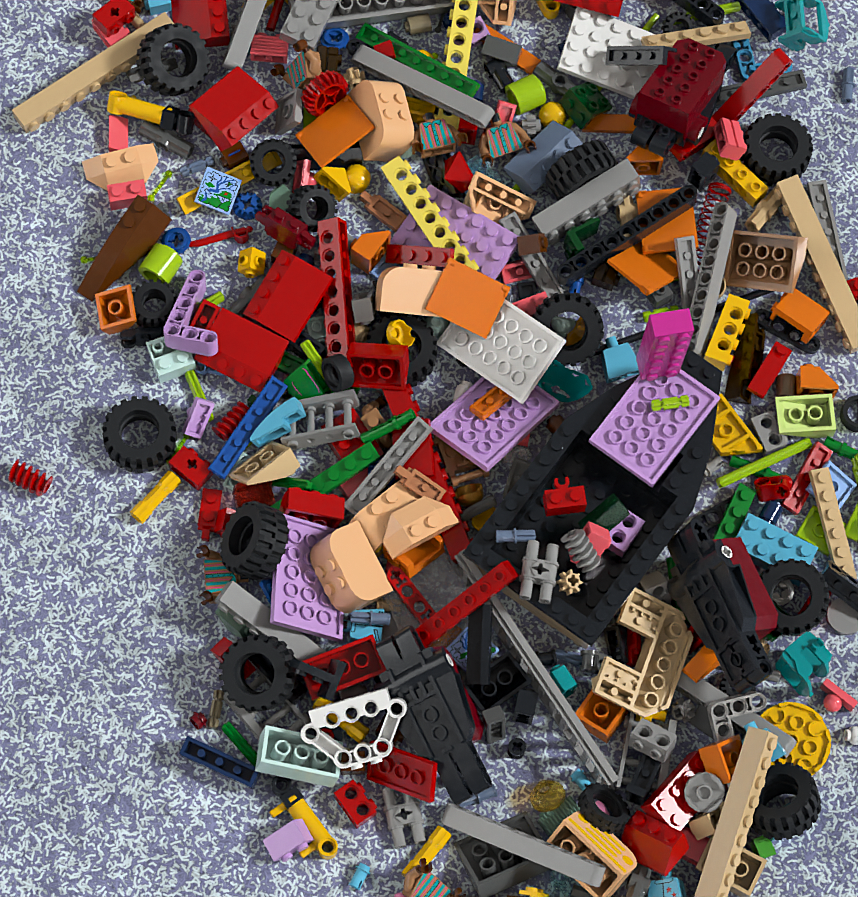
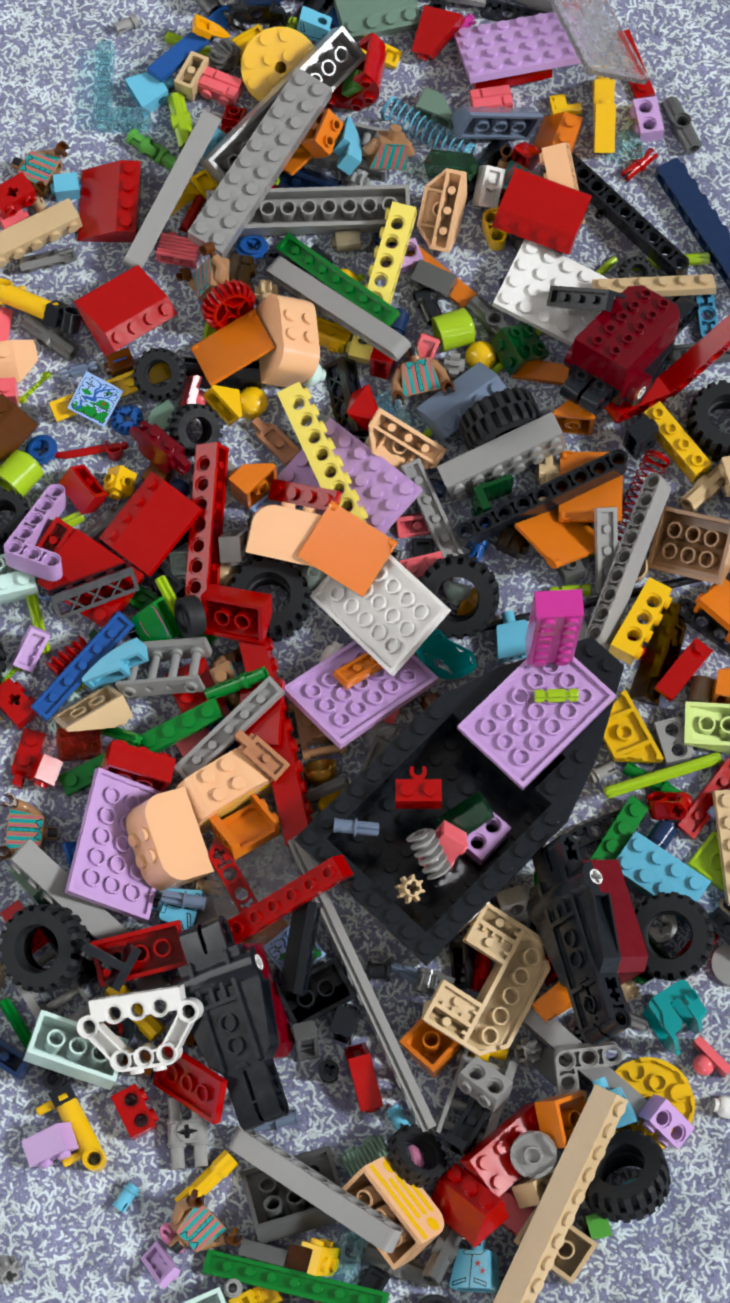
camera: 15 degrees right, 0 degrees up
(194, 53) = (93, 243): black tyre -> none
(220, 272) = (83, 489): none -> red brick
(245, 353) = (92, 582): none -> black fence
(254, 540) = (64, 795): black tyre -> none
(289, 111) = (187, 321): light grey plate -> none
(386, 48) = (304, 263): red tile -> none
(399, 333) = (266, 580): yellow hair -> none
(417, 524) = (250, 799): light nougat wedge -> none
(436, 137) = (343, 366): torso -> none
(530, 575) = (387, 875): light grey pin -> none
(532, 244) = (432, 496): reddish brown brick -> none
(547, 749) = (363, 1077): none -> red slope
(549, 799) = (358, 1136): clear yellow piece -> none
(563, 680) = (391, 1000): teal brick -> none
(729, 139) = (674, 403): coral brick -> none
(809, 752) = (668, 1119): none -> lavender brick

